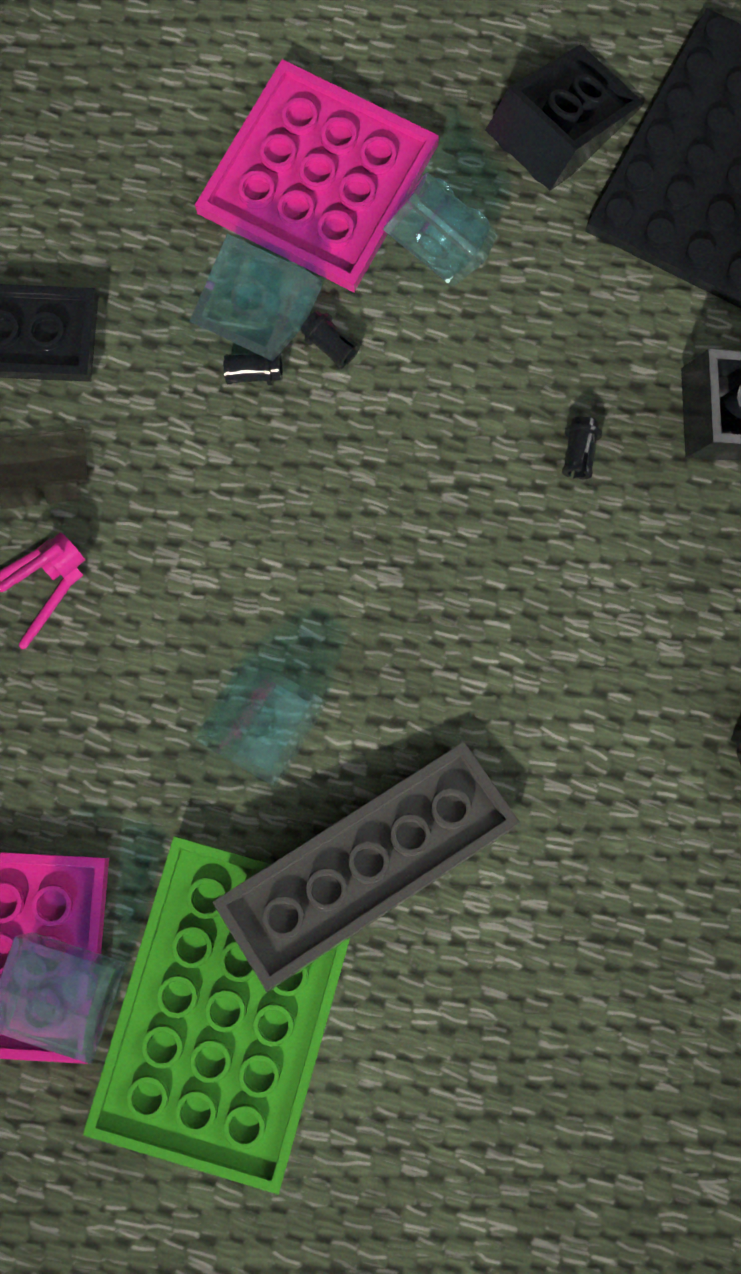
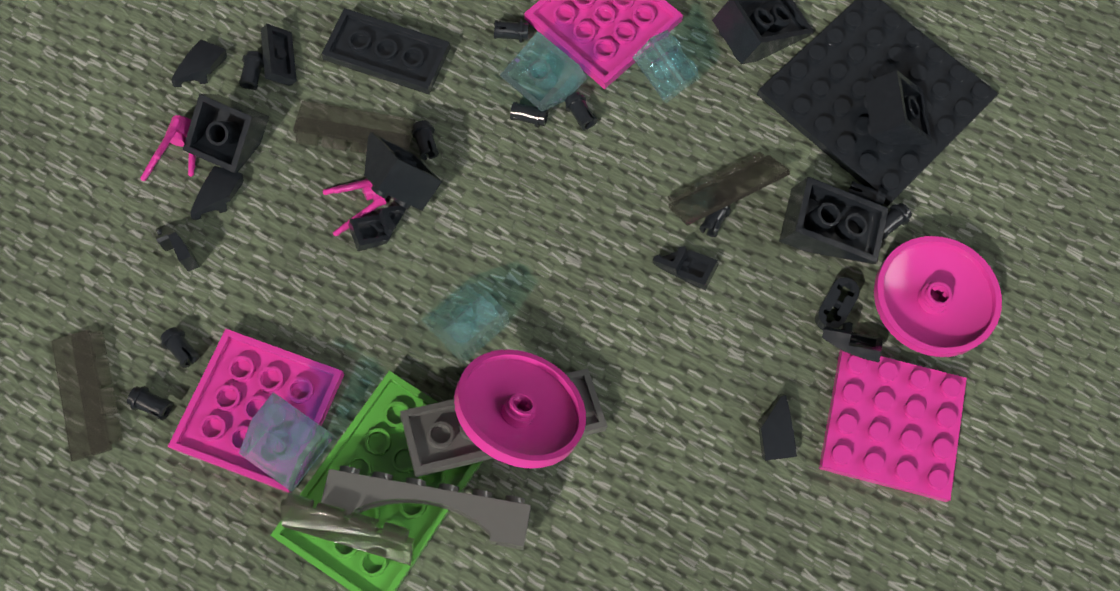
camera: 10 degrees right, 10 degrees down
(81, 620) = (375, 229): none -> black slope
(86, 527) = (398, 173): none -> black slope
(103, 448) = (423, 133): none -> black pin
(180, 1042) = (502, 519): none -> dark grey arch
(183, 238) = (511, 30): none -> black pin
(206, 1099) = (355, 532): none -> clear smoke windscreen
(389, 849) = (519, 408): none -> dark pink dish
(563, 536) = (688, 266): none -> black slope
(592, 394) = (732, 185): none -> clear smoke windscreen

